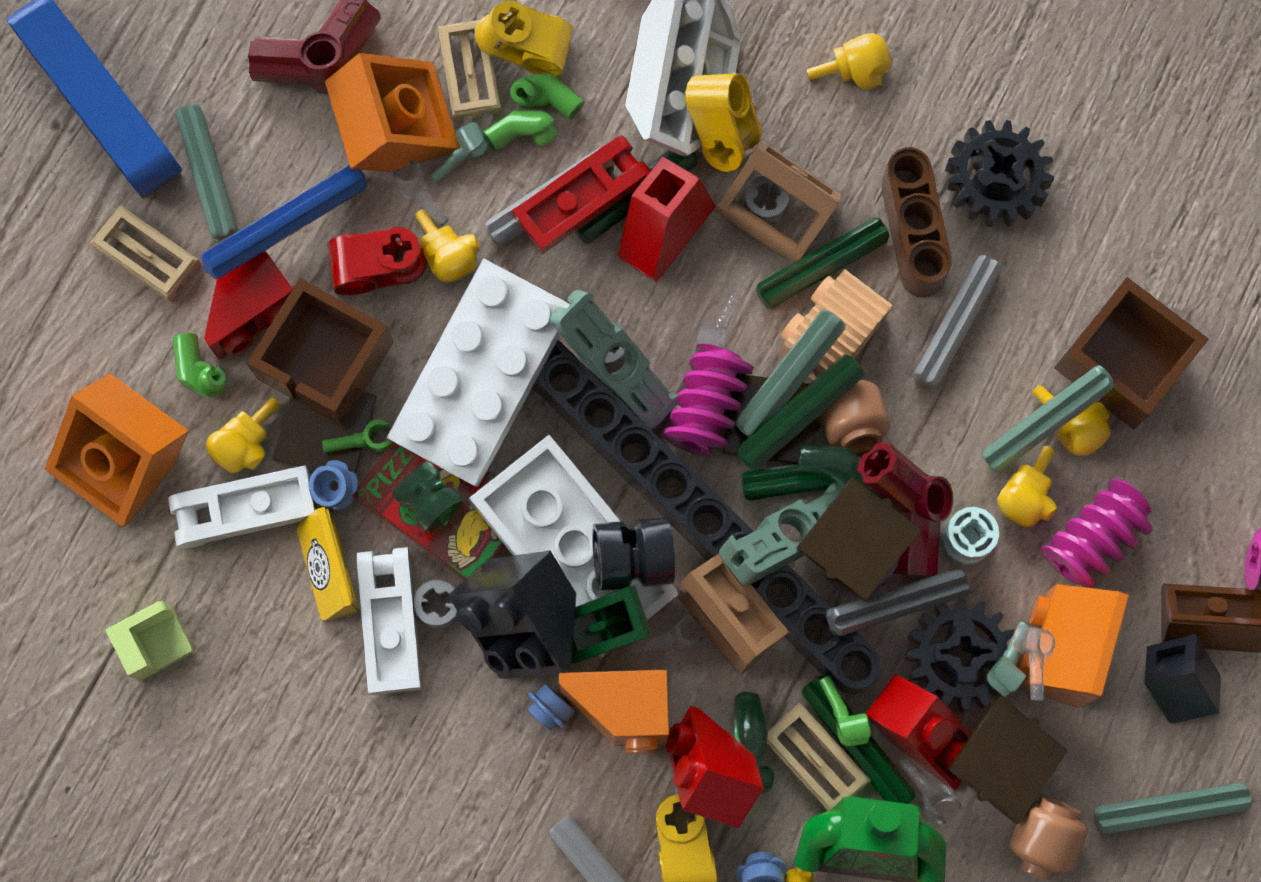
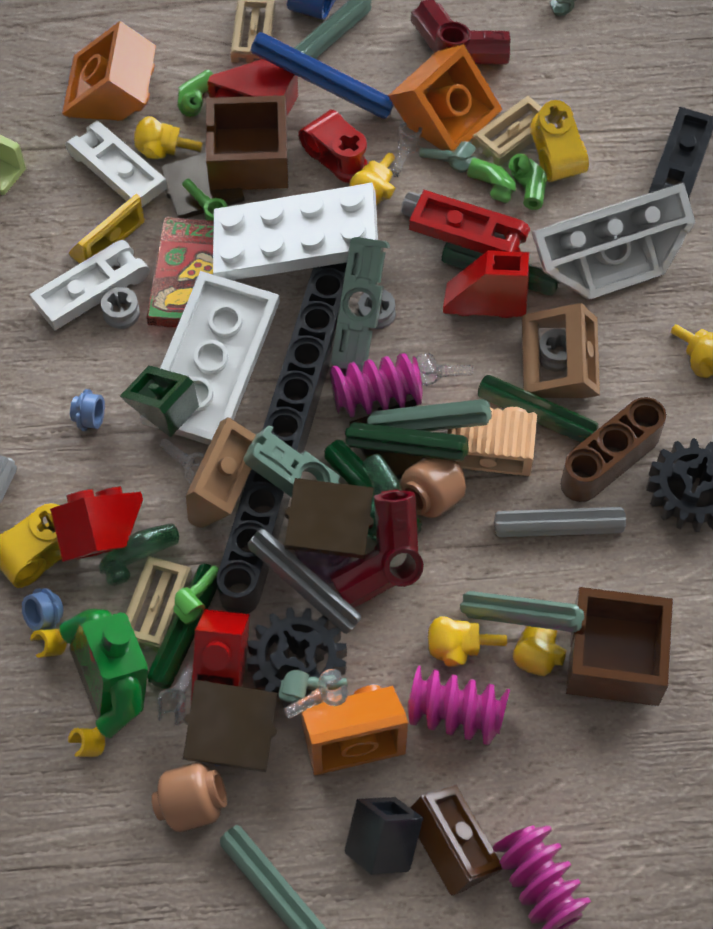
camera: 60 degrees right, 15 degrees down
(321, 488) = (162, 201): medium blue plate -> none
(428, 497) = (188, 248): clear green wheel -> none
(519, 614) = (136, 342): black slope -> none
(622, 705) = (110, 441): orange slope -> none
(633, 554) = (222, 383): black wheel -> none
(723, 118) = (590, 281): yellow piece -> none
(965, 545) = (389, 622): light aqua wheel -> none

